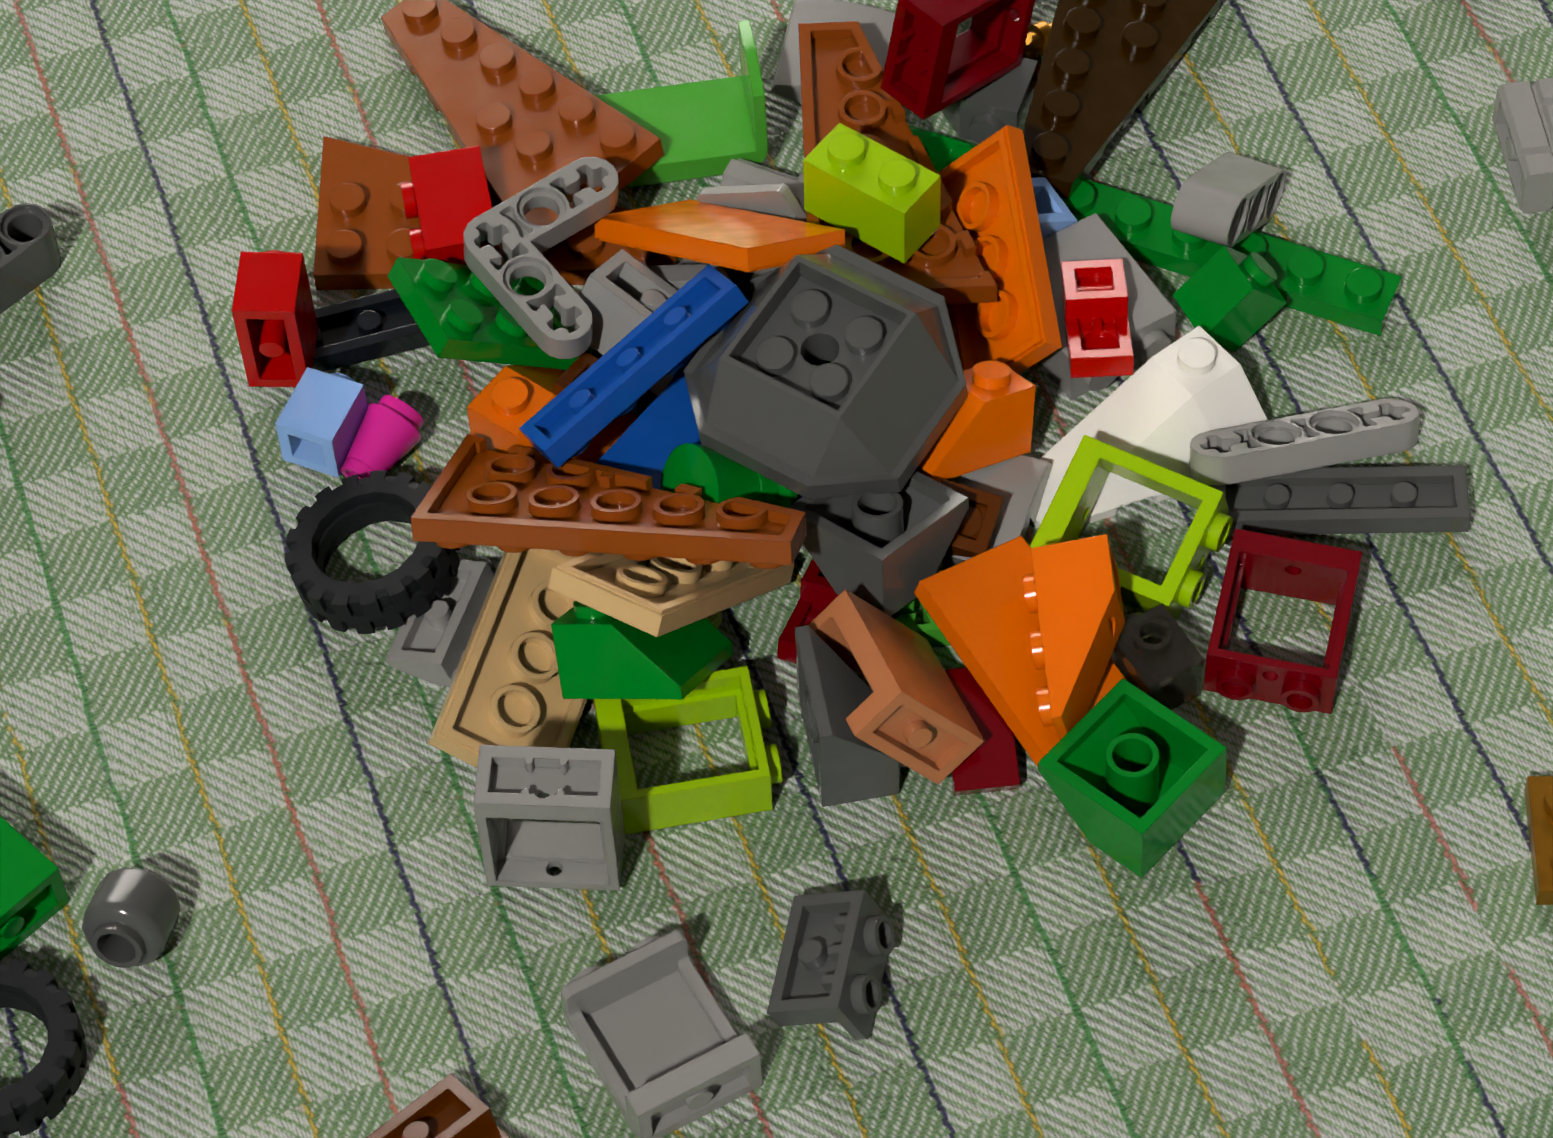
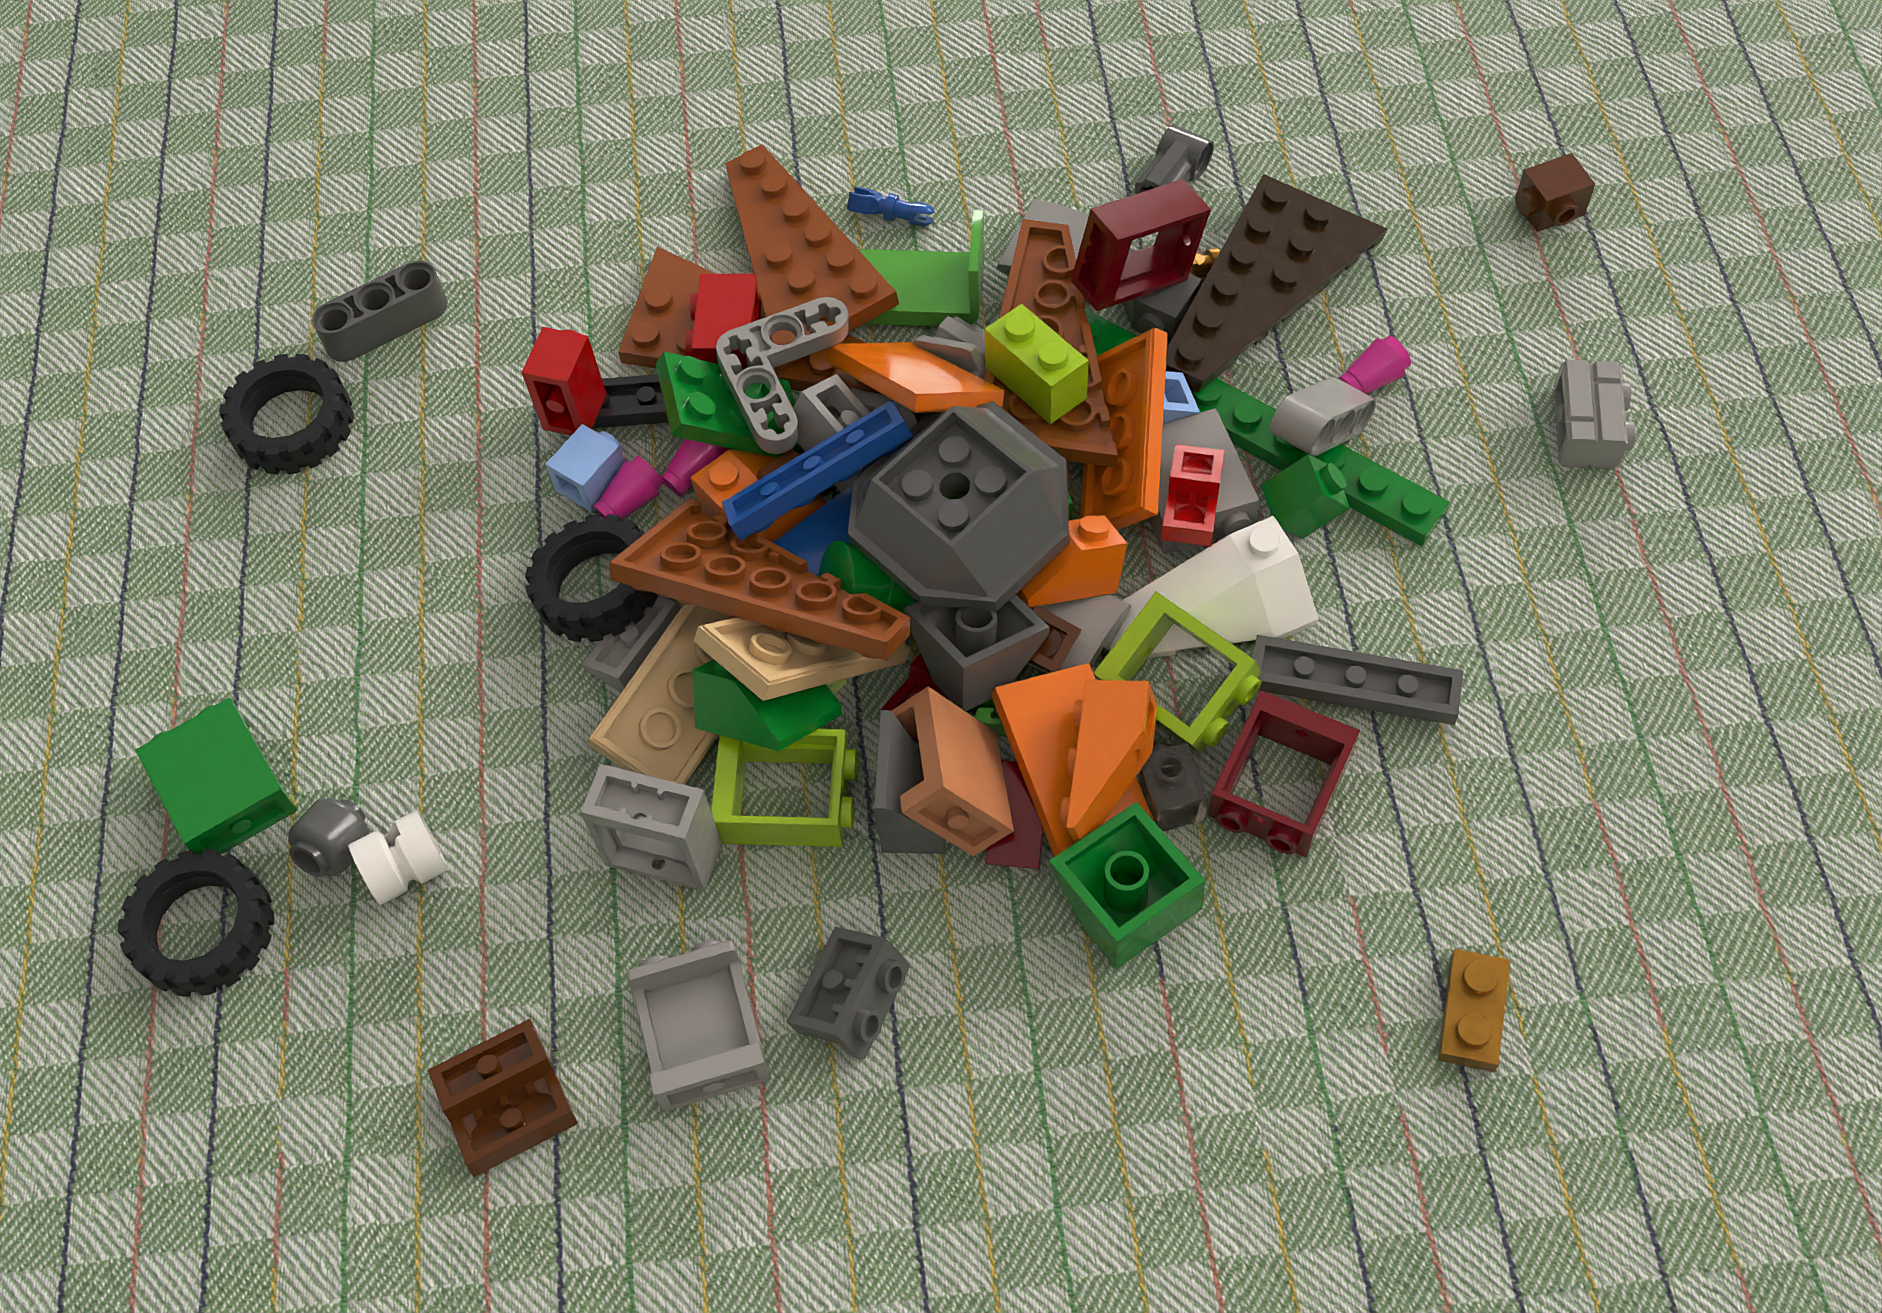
camera: 15 degrees right, 5 degrees up
(236, 916) = (398, 857): none -> white wheel
(451, 391) = (687, 461): none -> dark pink cone
(582, 35) = (871, 202): none -> blue piece
(1277, 129) = (1378, 365): none -> dark pink cone
(1303, 441) = (1337, 625): light grey beam -> none

